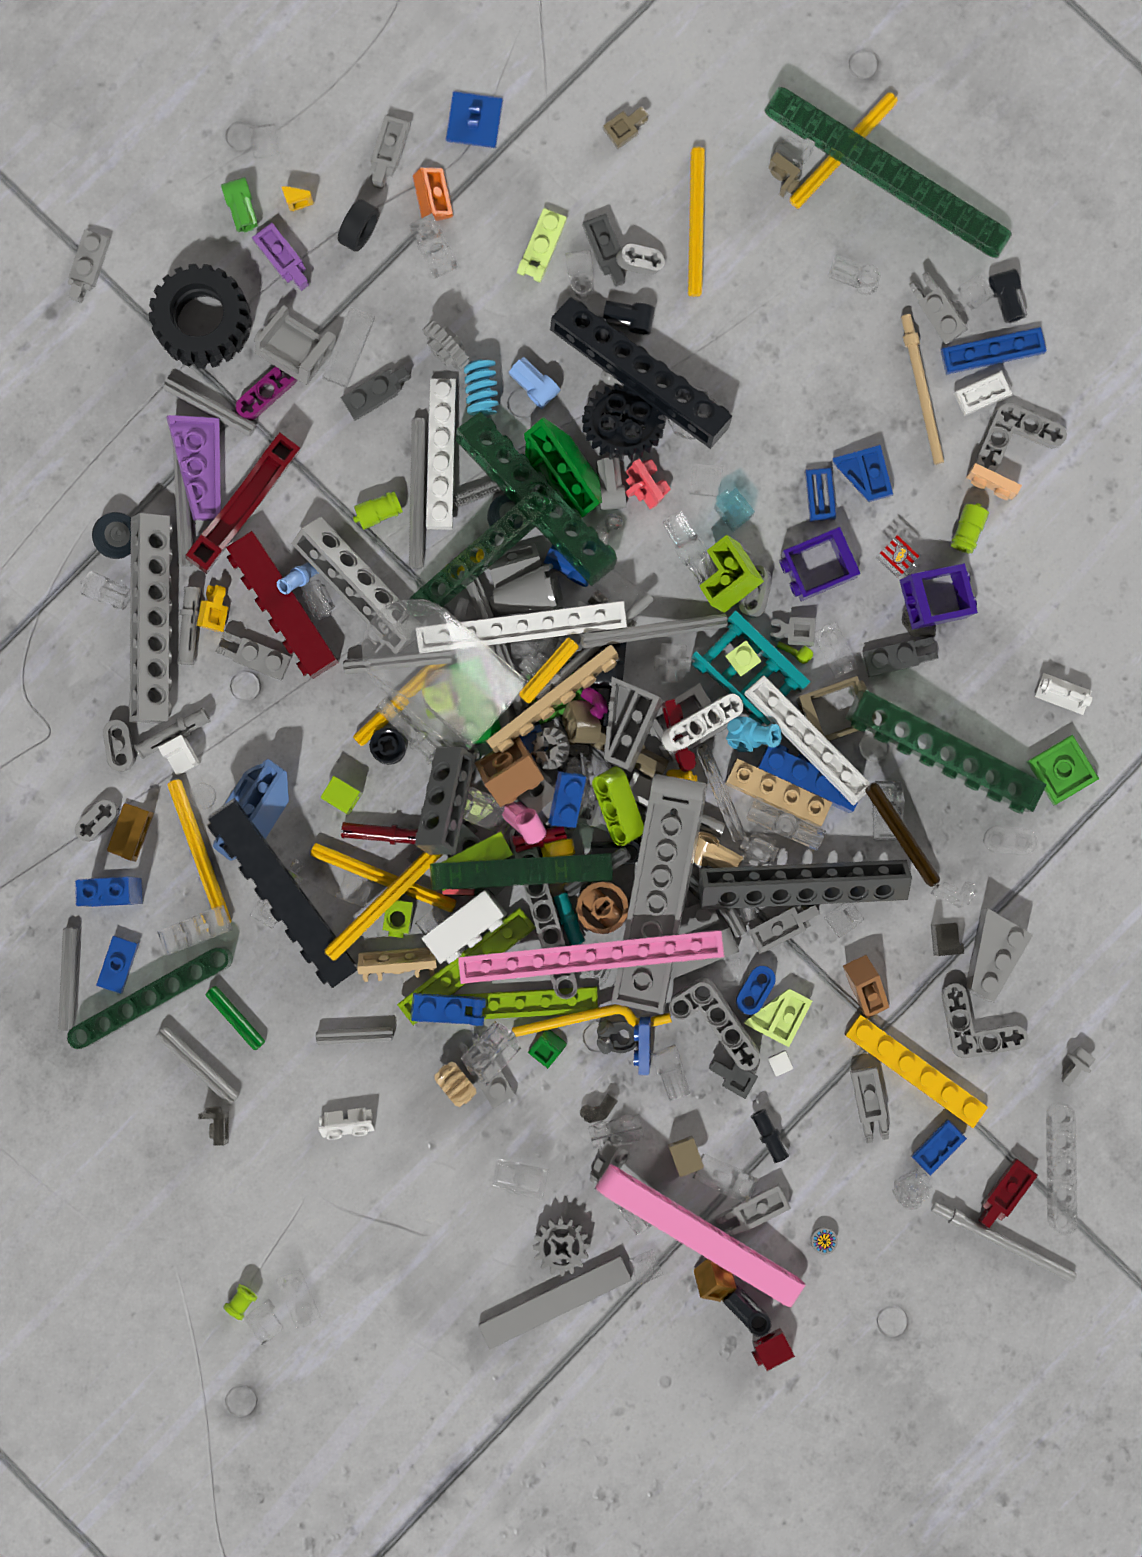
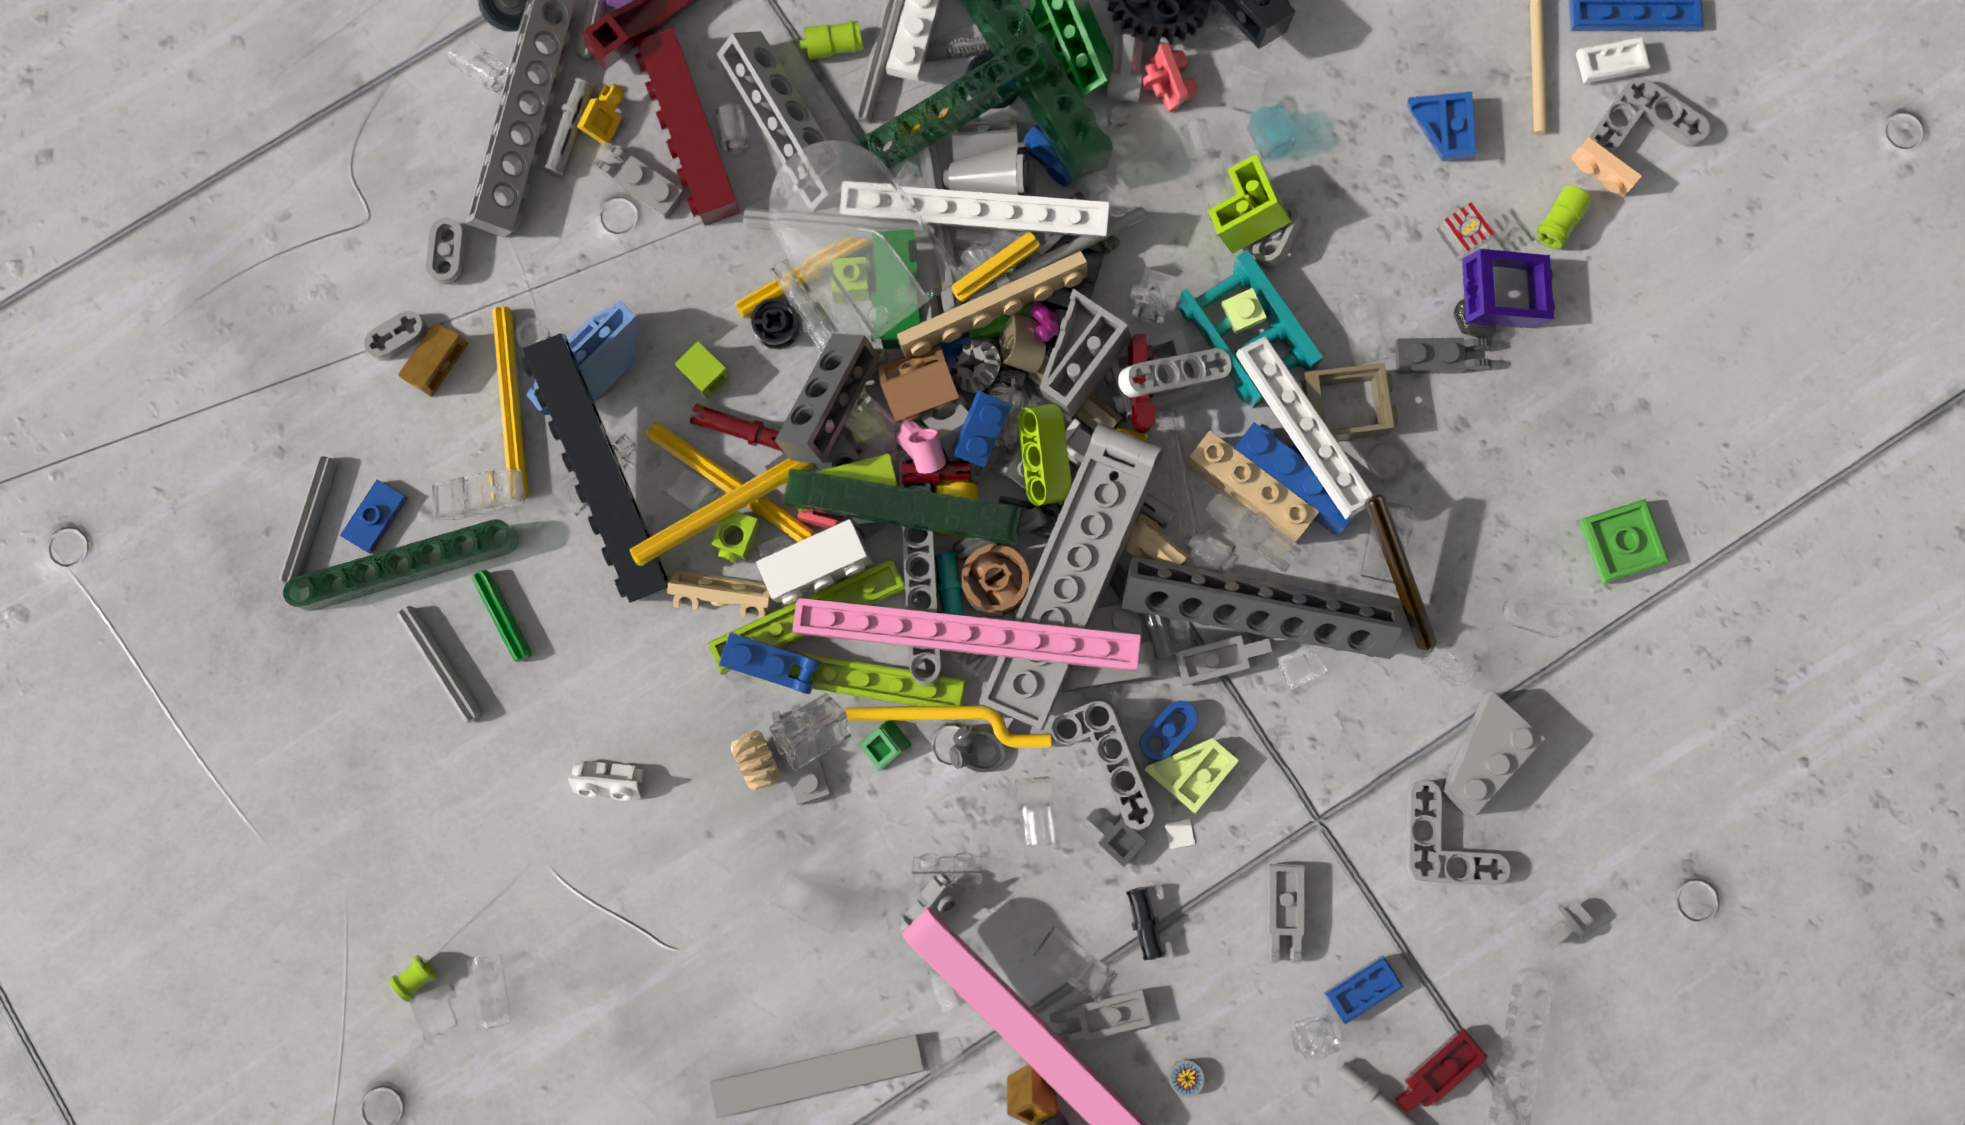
camera: 20 degrees right, 5 degrees down
(108, 891) = (375, 416): blue window -> none
(179, 755) = (516, 277): white panel -> none
(182, 727) = (515, 250): light grey pin -> none
(220, 1127) = (446, 748): clear smoke bracket -> none
(298, 576) = (713, 94): light blue pin -> none
(354, 1035) = (645, 672): light grey axle -> none
(553, 1255) = (850, 1018): light grey gear -> none
(598, 1113) = (931, 842): clear smoke arm -> none
(642, 1056) = (1010, 753): plate -> none
(653, 630) = (1139, 251): light grey axle -> none
(686, 1156) = (1030, 924): dark tan panel -> none
(749, 734) = (1230, 405): medium azure connector -> none
(798, 631) = (1320, 296): light grey plate -> none
(803, 655) = (1319, 328): lime hand -> none
(810, 496) = (1380, 164): blue tile -> none
(842, 553) = (1396, 209): dark purple window -> none
(866, 986) = (1313, 758): medium nougat slope -> none
(916, 1071) = (1355, 884): yellow plate -> none
(946, 939) = (1428, 723): clear smoke panel -> none
(1027, 787) = (1574, 550): clear green brick -> none
(1063, 694) = (1643, 447): white hinge -> none

